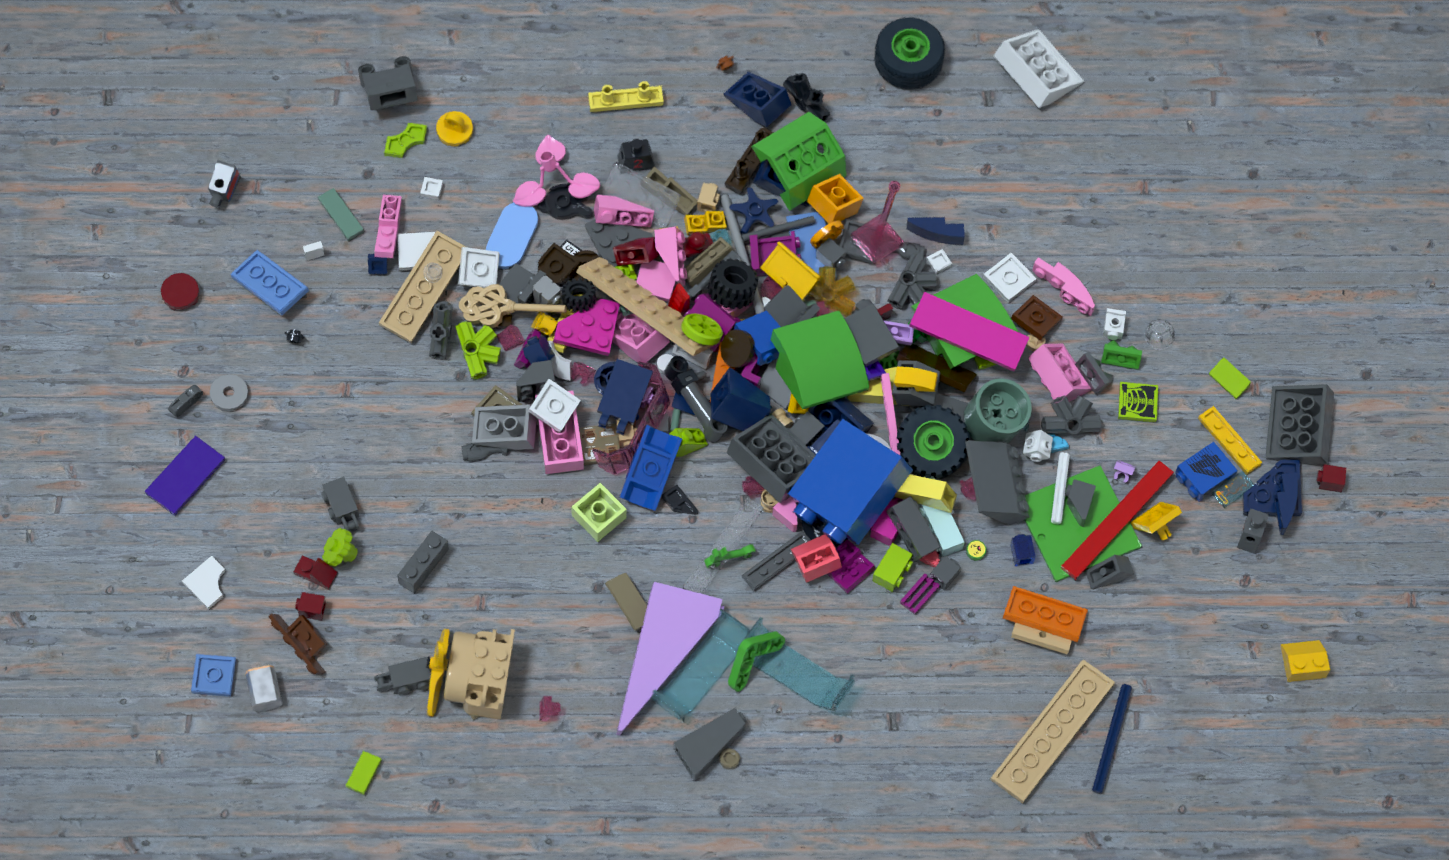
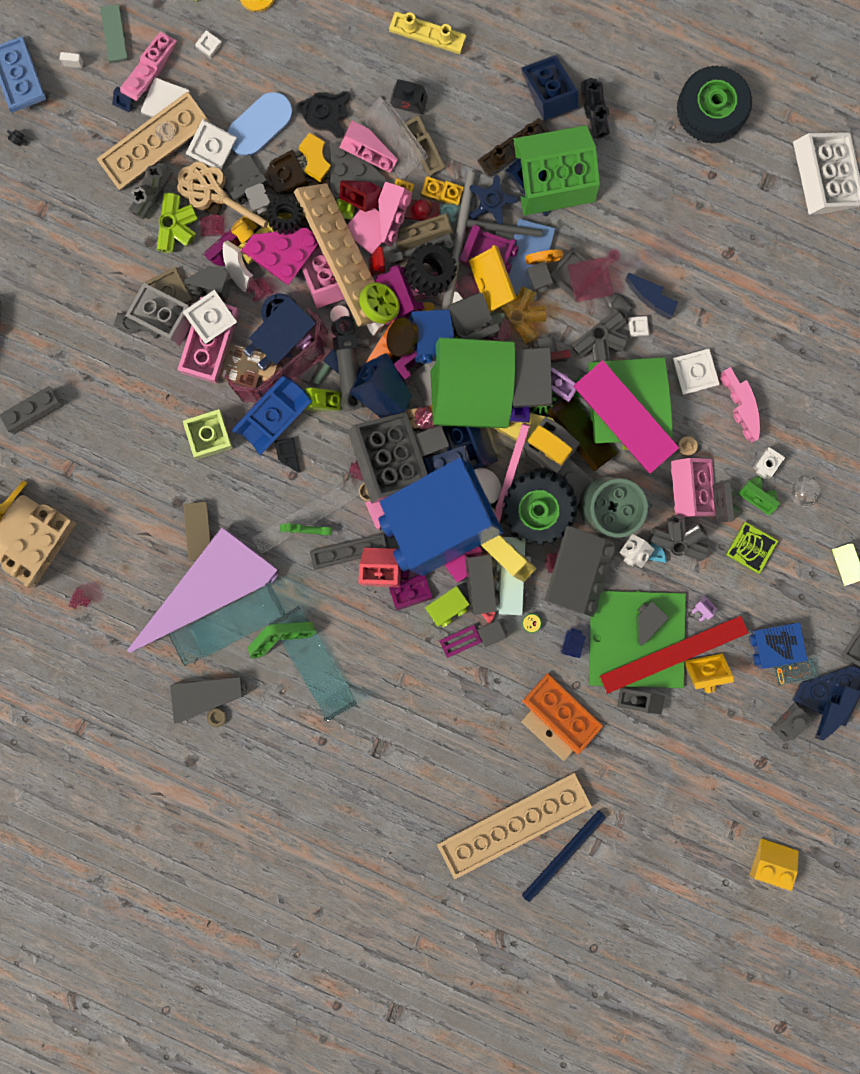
camera: 25 degrees right, 20 degrees up
(538, 350) = (223, 254): dark blue brick -> none
(548, 154) = (331, 56): bright pink plant -> none
(571, 235) = (316, 164): none -> yellow tile
(708, 198) = (455, 168): tan brick -> none
(725, 63) = (537, 37): dark orange plate -> none
(791, 410) = (424, 418): none -> clear pink gear
(835, 199) = (570, 223): light orange brick -> none
(1036, 317) = (699, 424): reddish brown tile -> none
(1060, 488) = (637, 600): white axle -> none
(1230, 440) = (817, 623): yellow tile -> none

